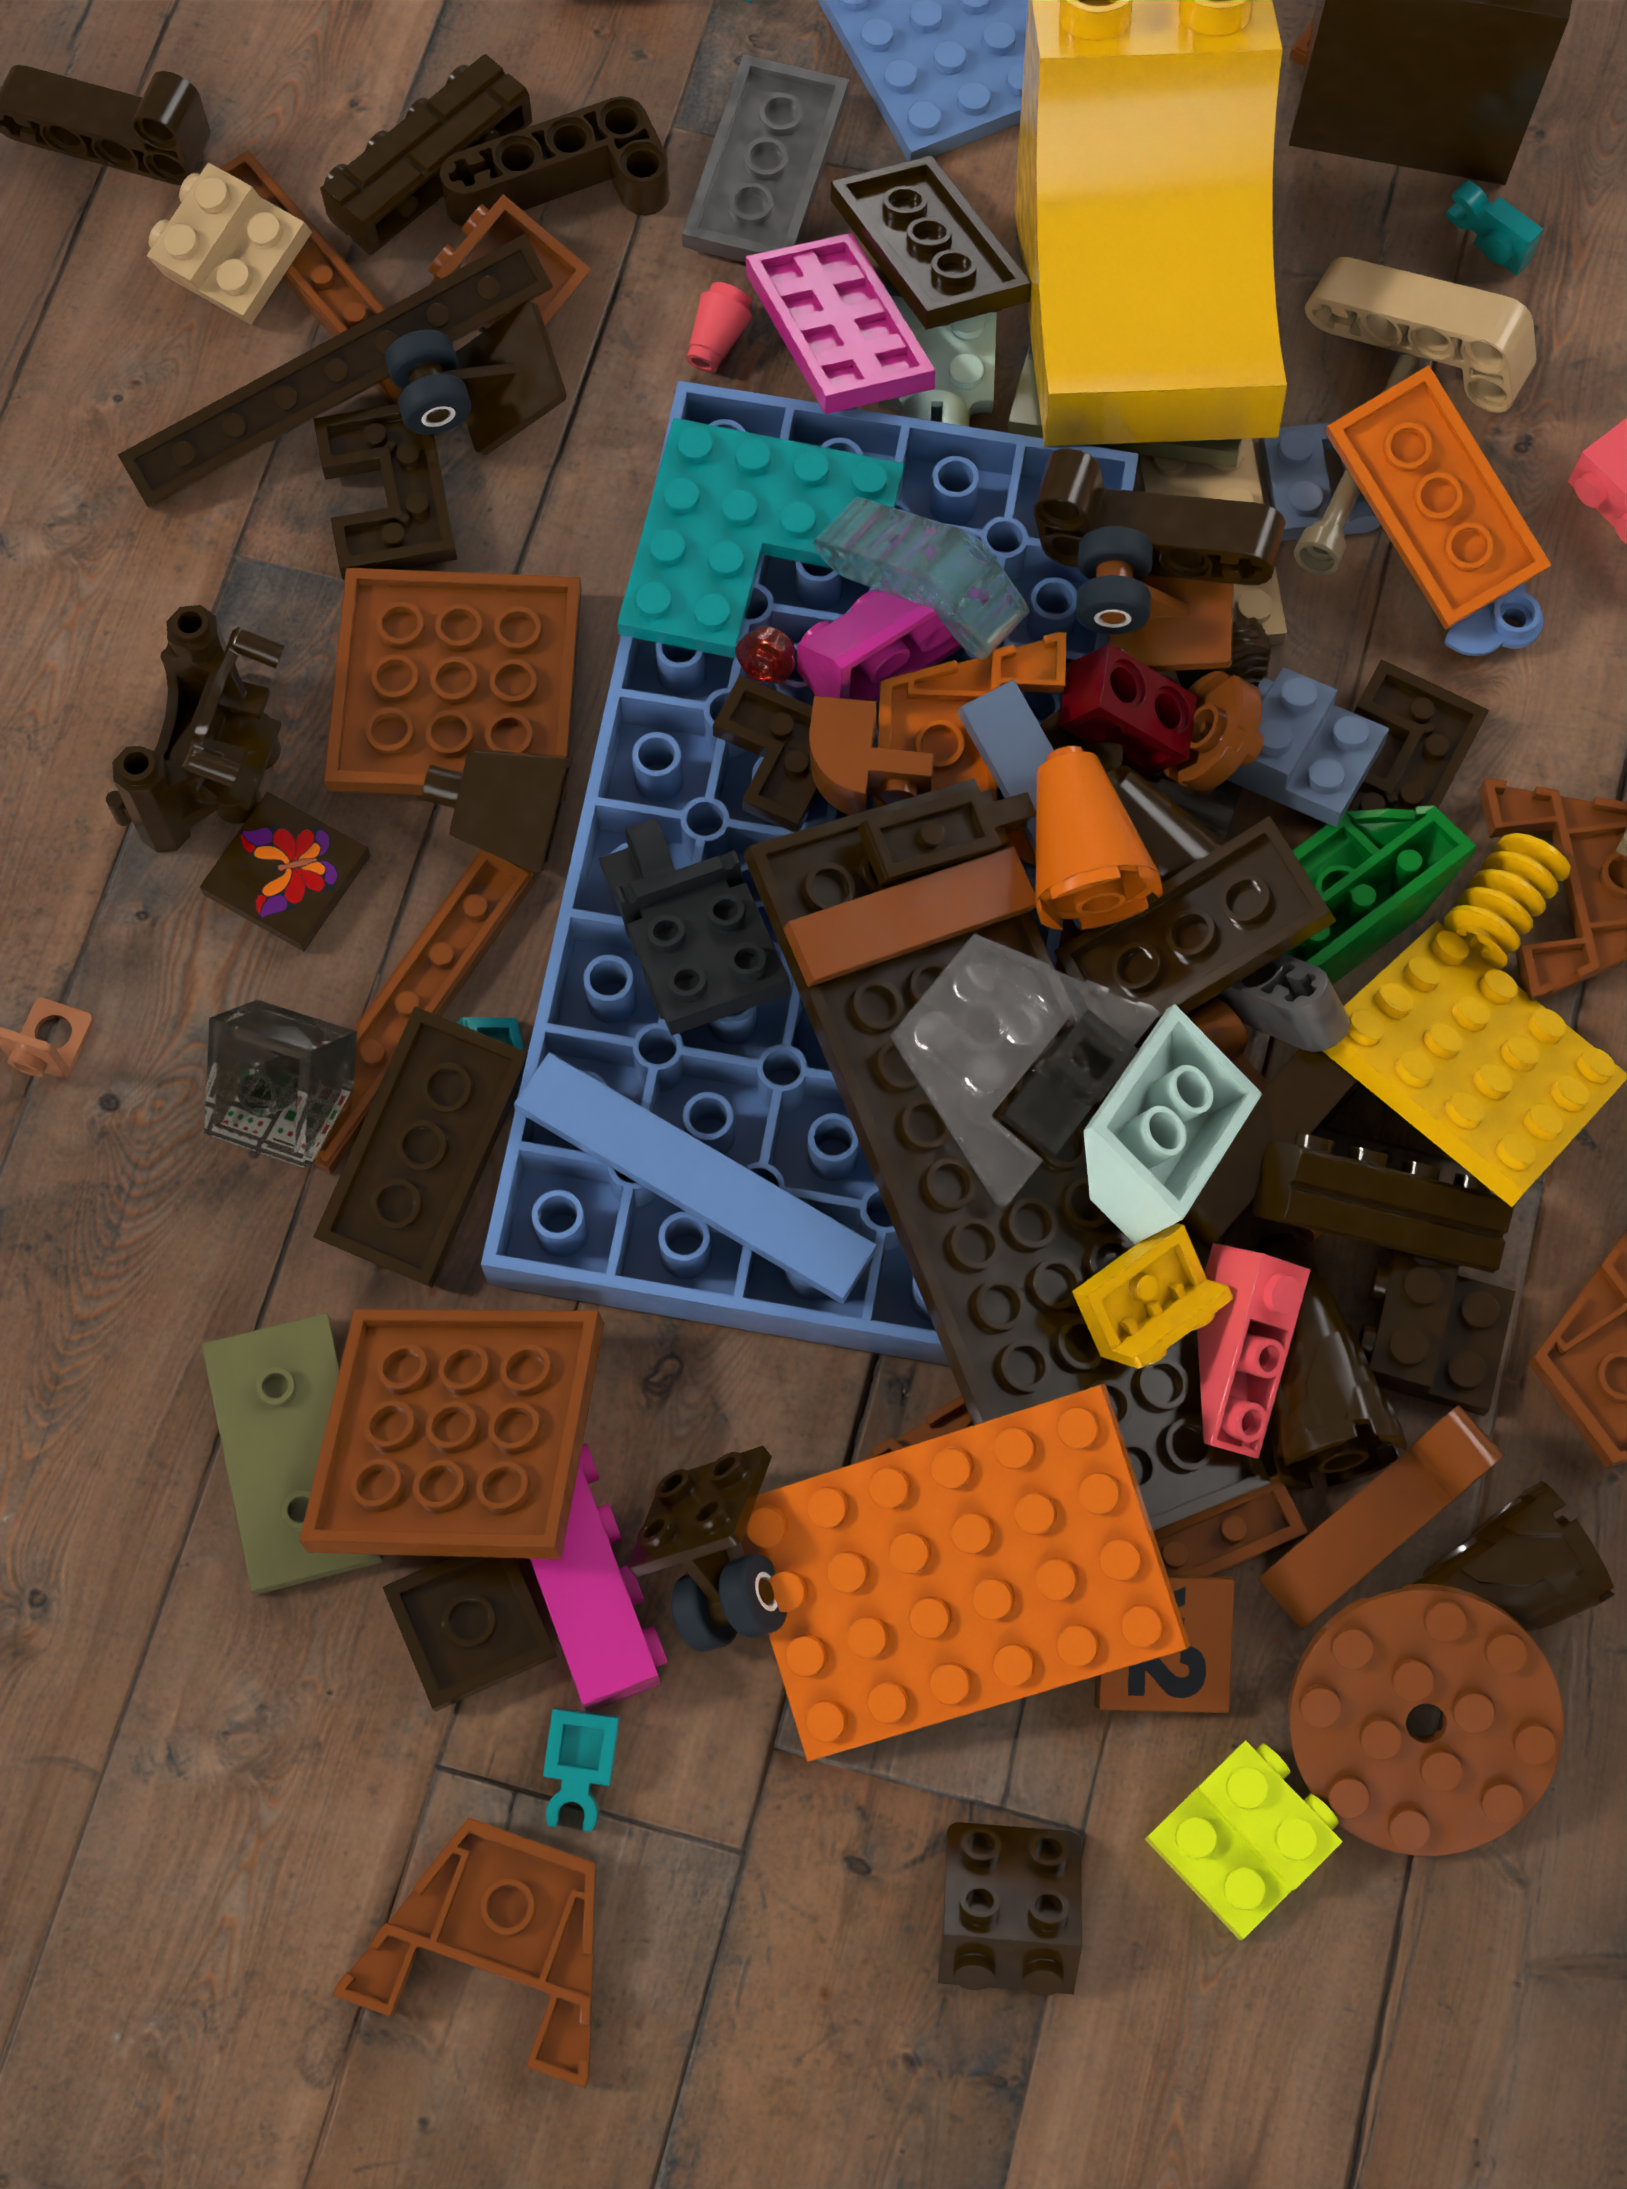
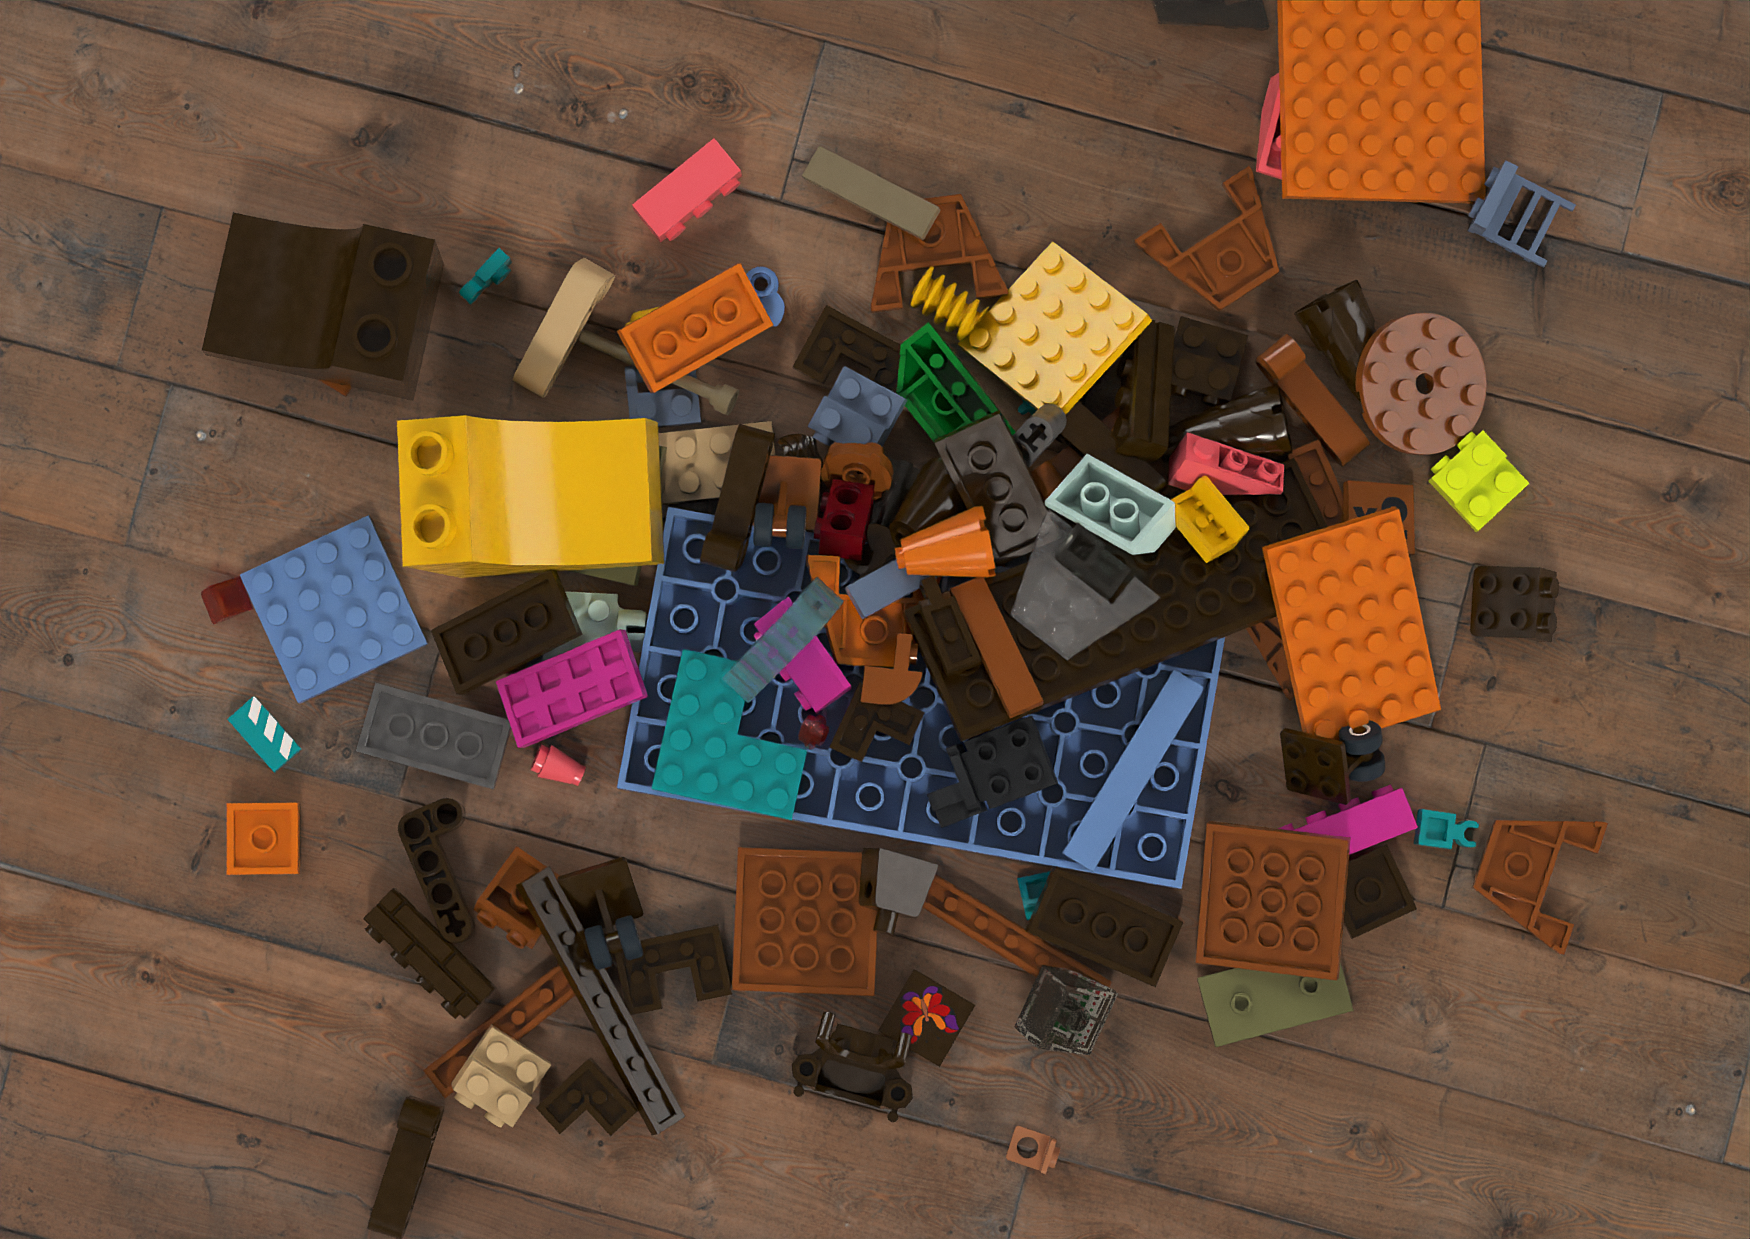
camera: 90 degrees left, 15 degrees up
(192, 360) = (588, 1090): none -> dark brown panel

